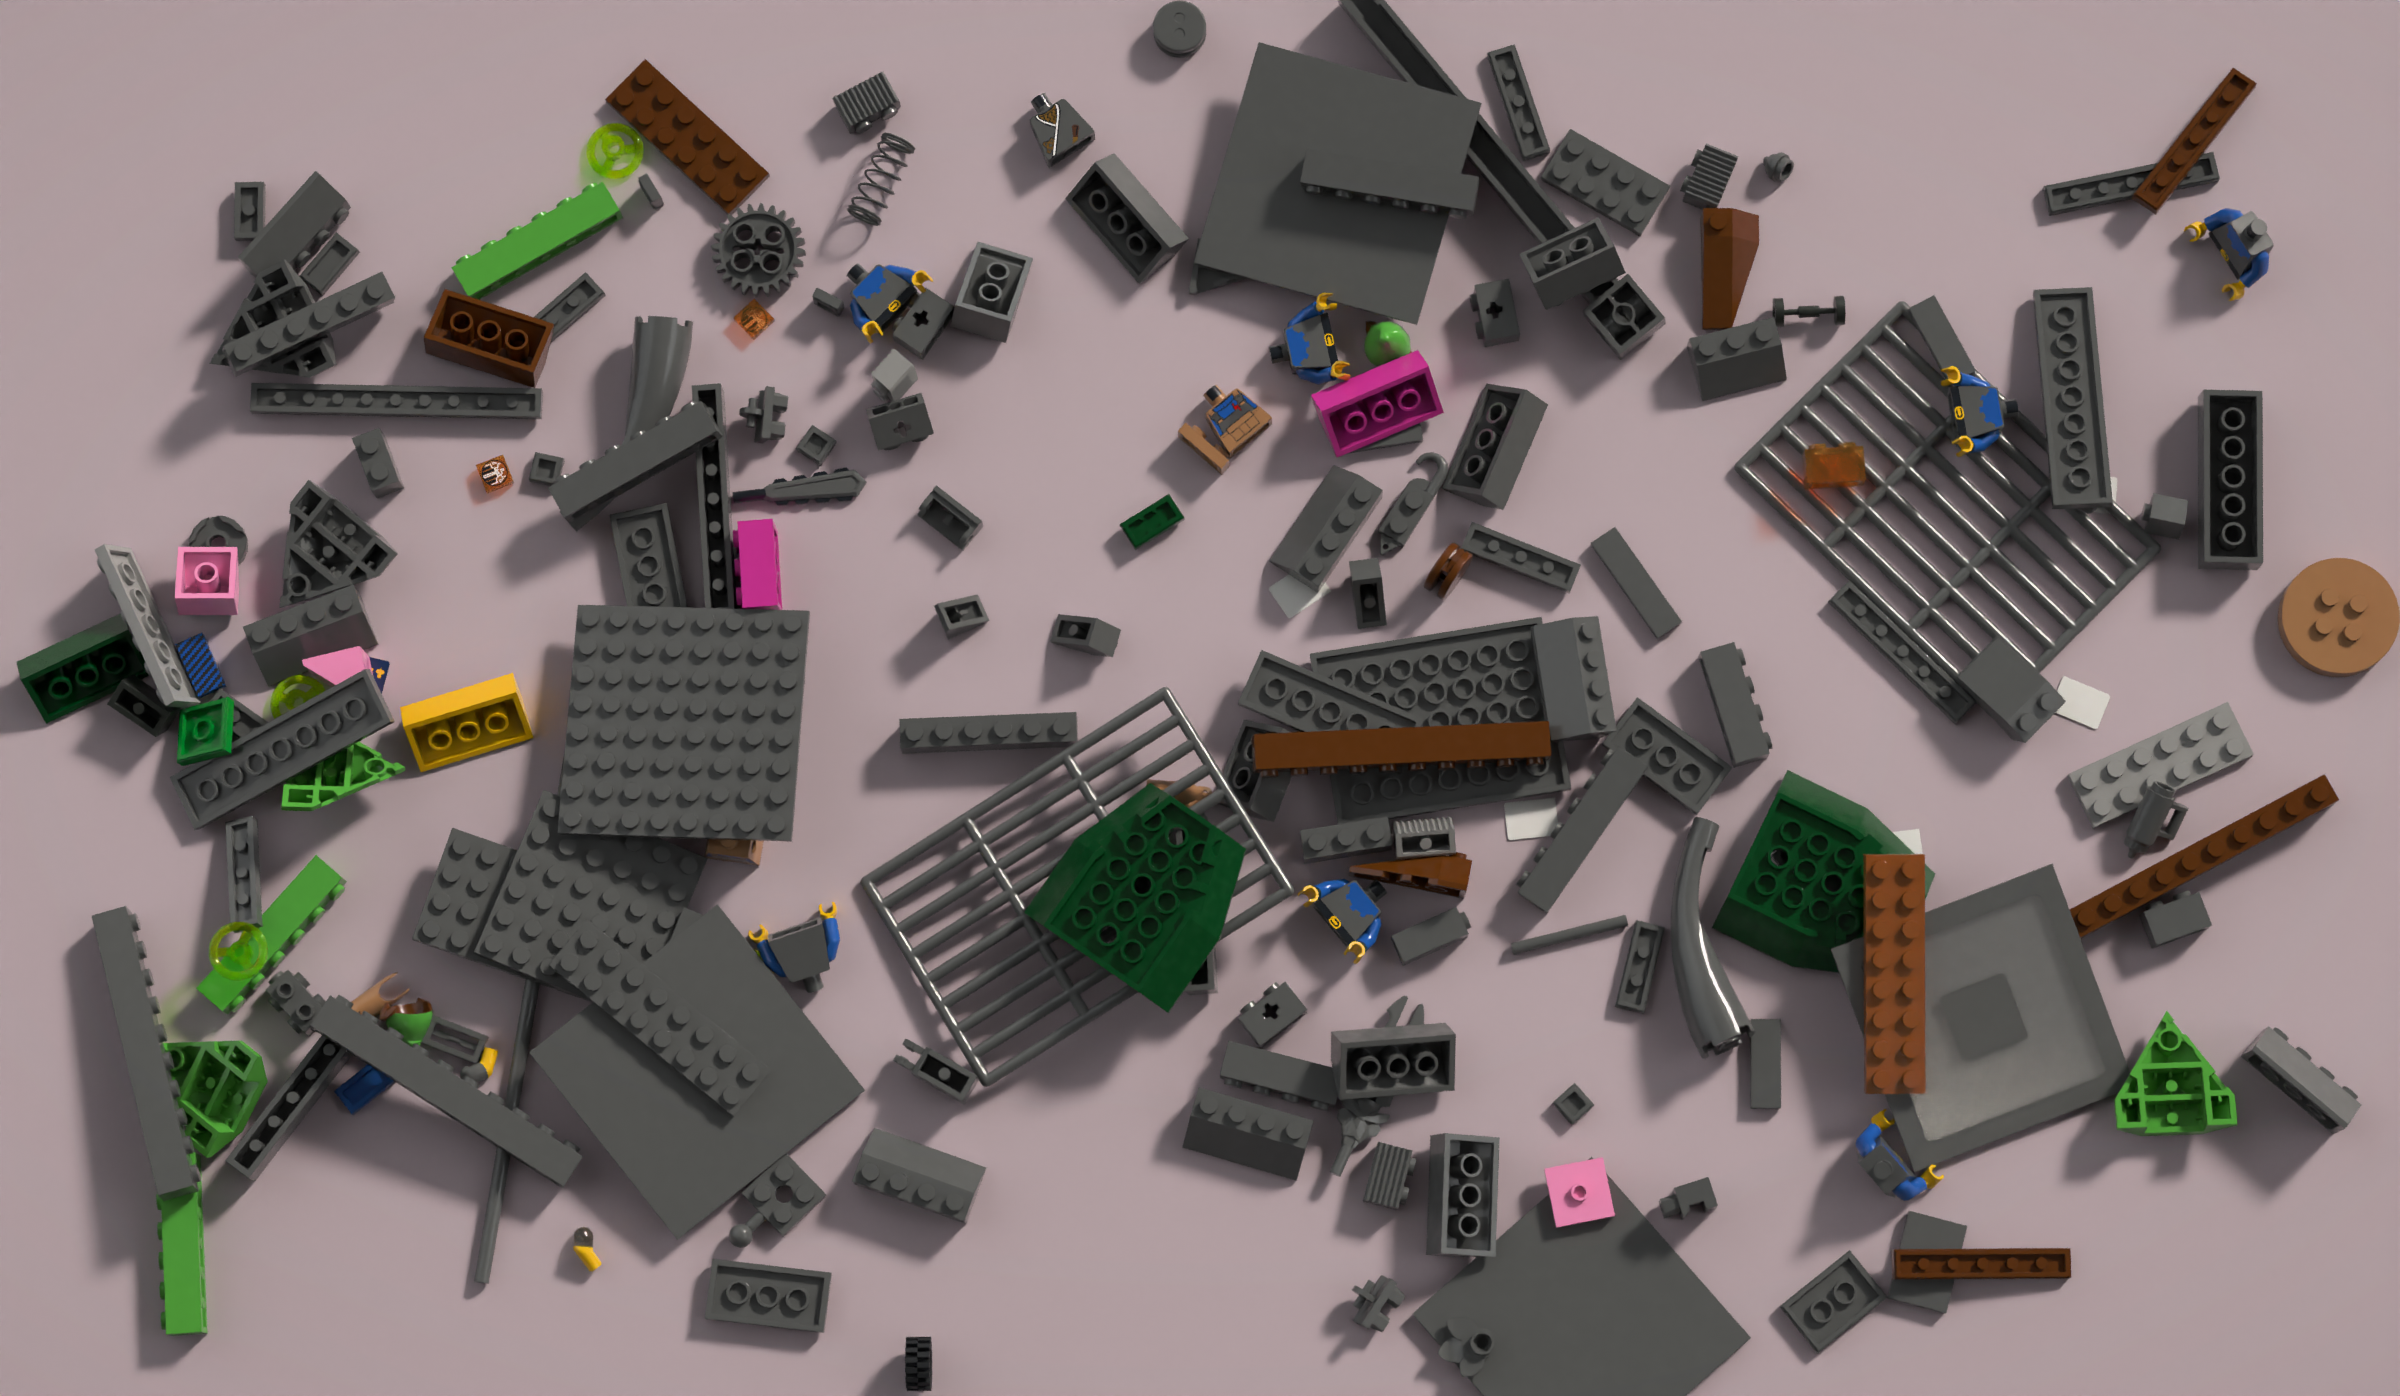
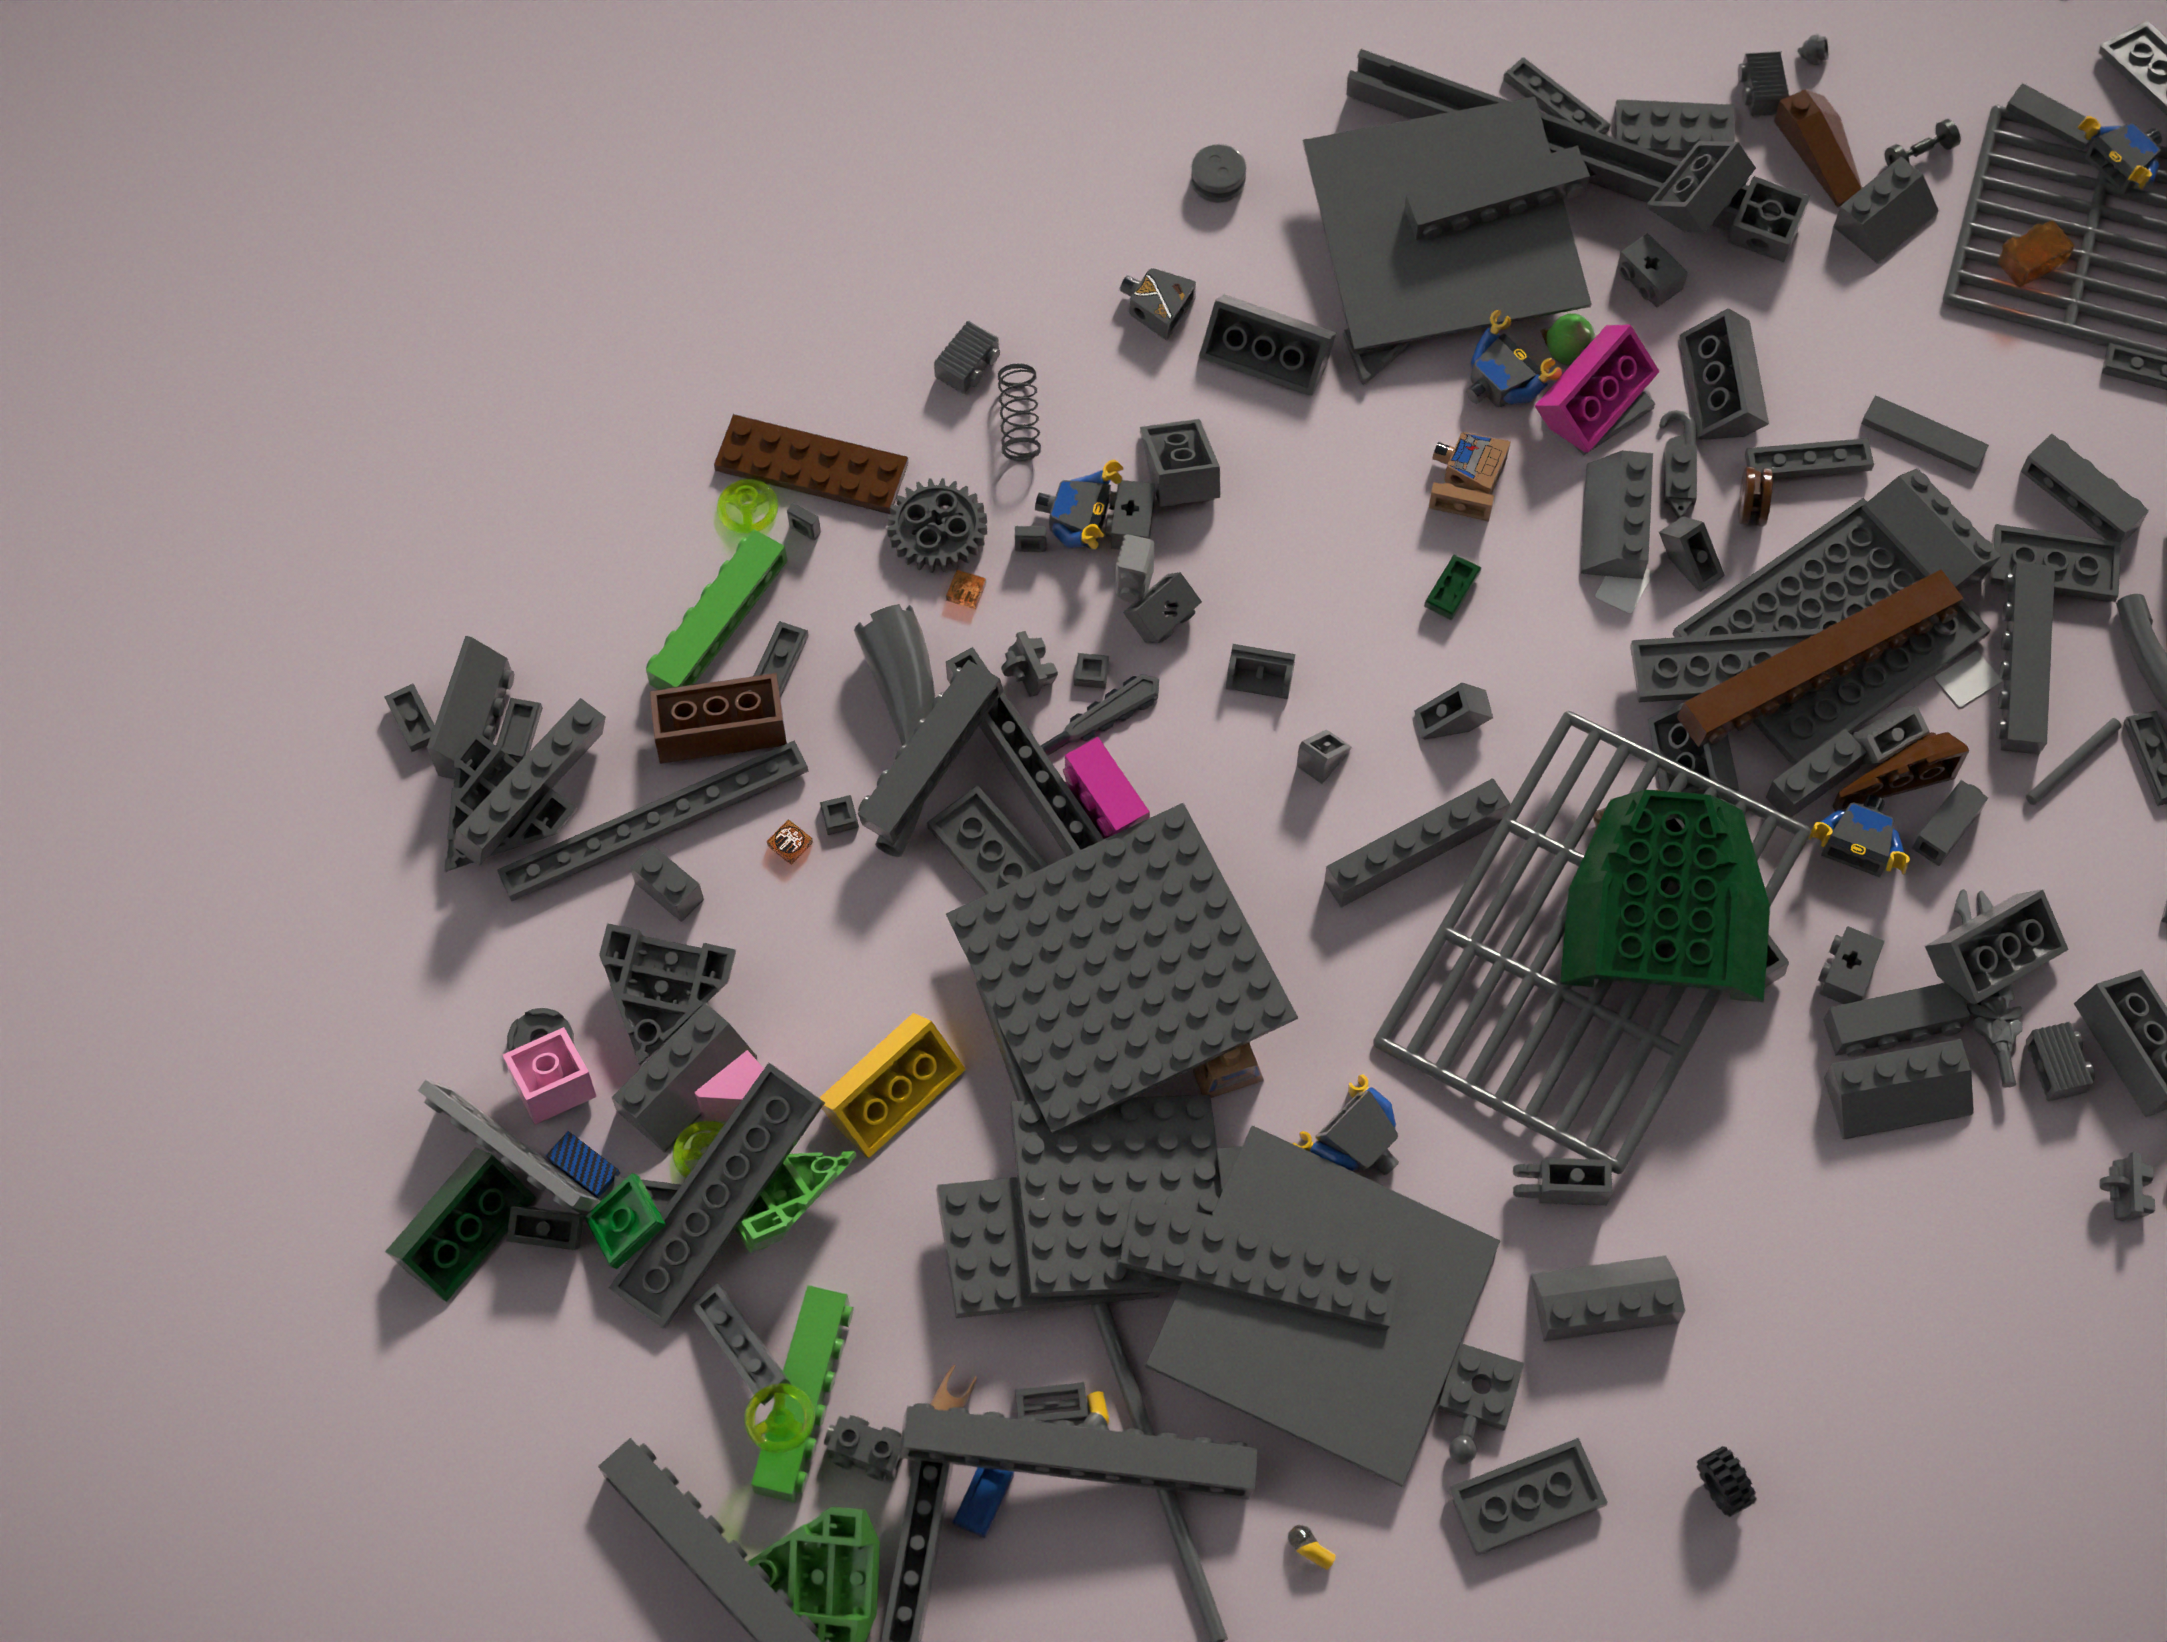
camera: 30 degrees left, 15 degrees down
(409, 1019) = (1000, 1397): bright green hat -> none

